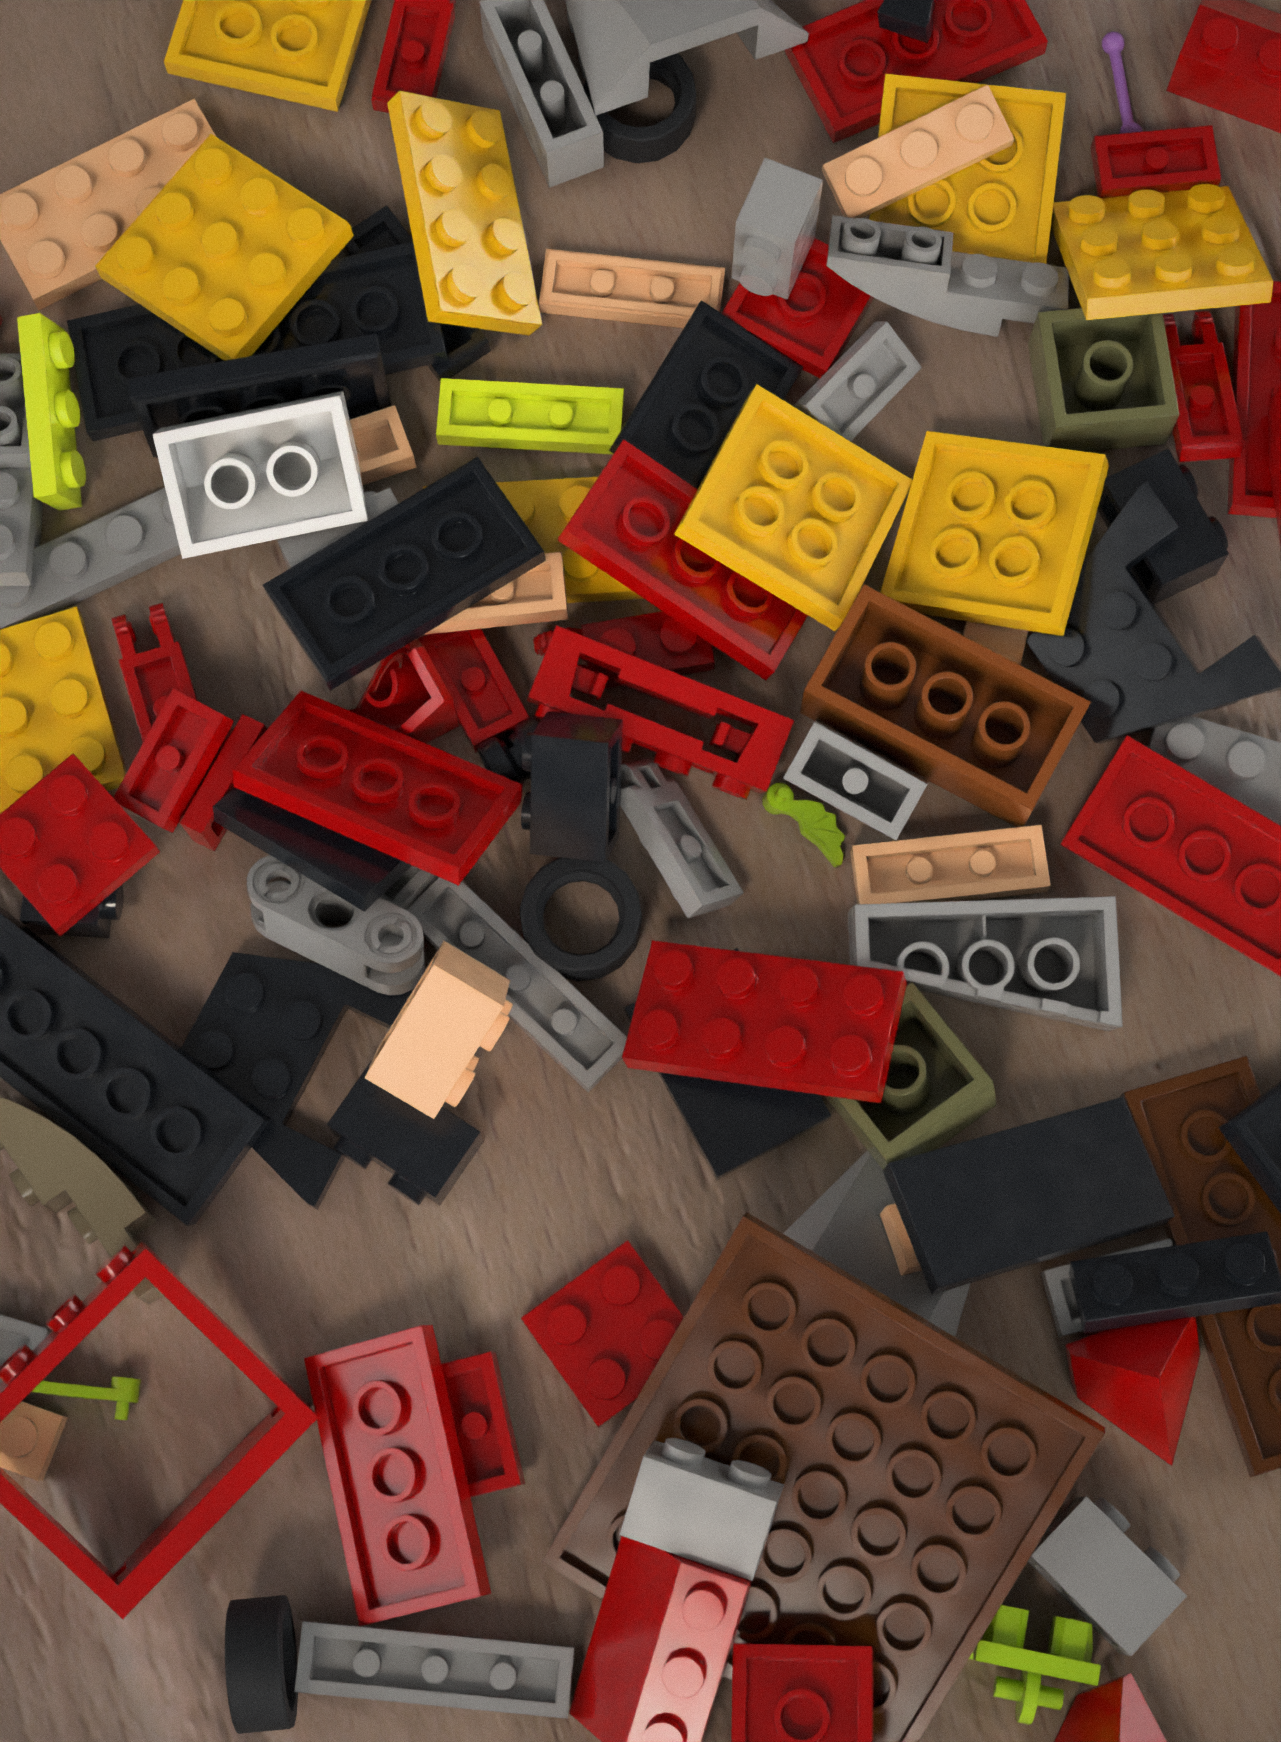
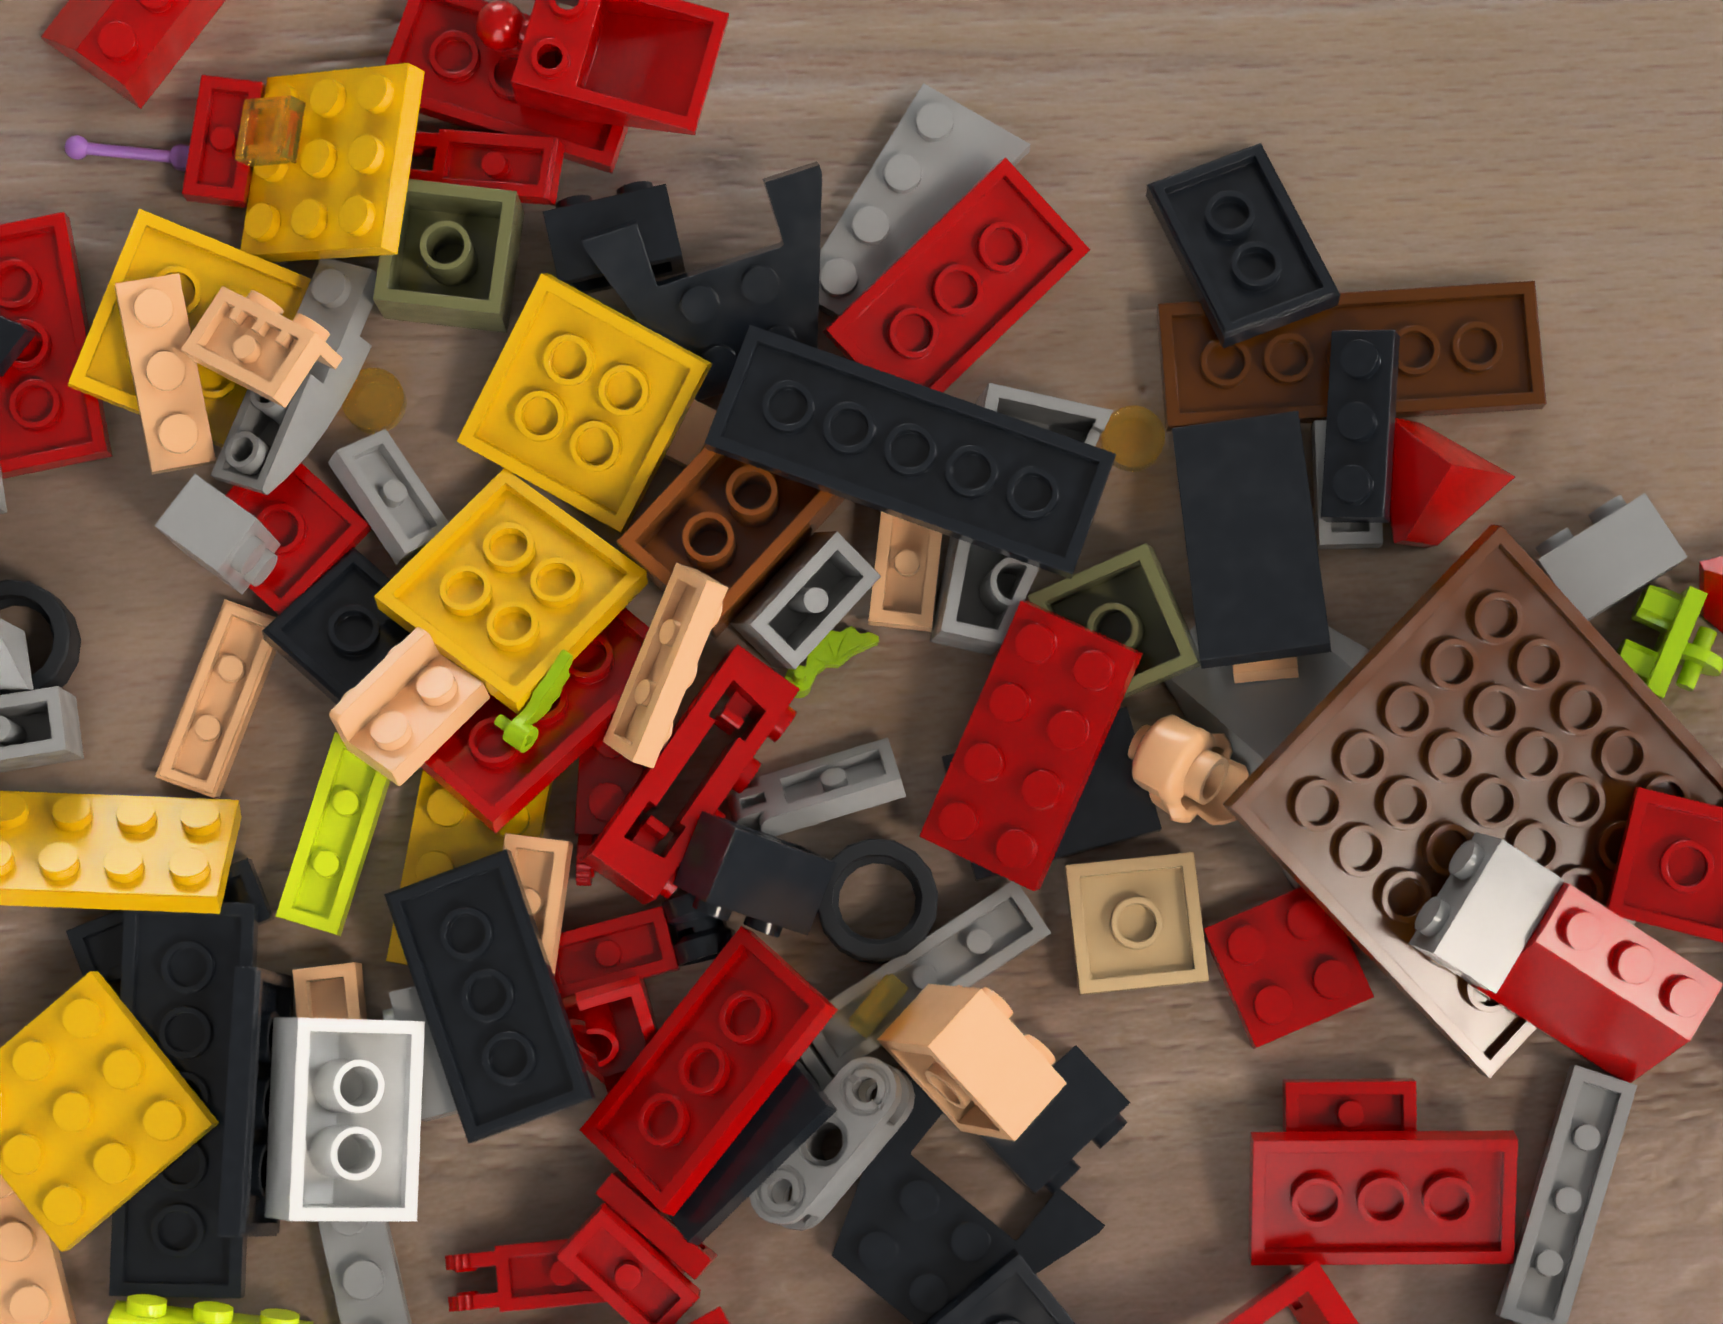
camera: 75 degrees left, 5 degrees up
(474, 932) = (877, 1006): none -> clear yellow tile
(617, 1172) = (1136, 923): none -> tan plate
(657, 431) = (406, 707): none -> light nougat bracket
(696, 551) = (520, 731): none -> lime piece
(754, 653) = (665, 665): none -> light nougat plate
(782, 1179) = (1186, 770): none -> light nougat head
(946, 354) = (375, 401): none -> clear yellow tile
(961, 218) = (257, 345): none -> light nougat bracket
(1023, 833) = (910, 451): none -> black plate
(1104, 1065) = (1134, 437): none -> clear yellow tile
(1174, 190) = (270, 131): none -> clear yellow tile

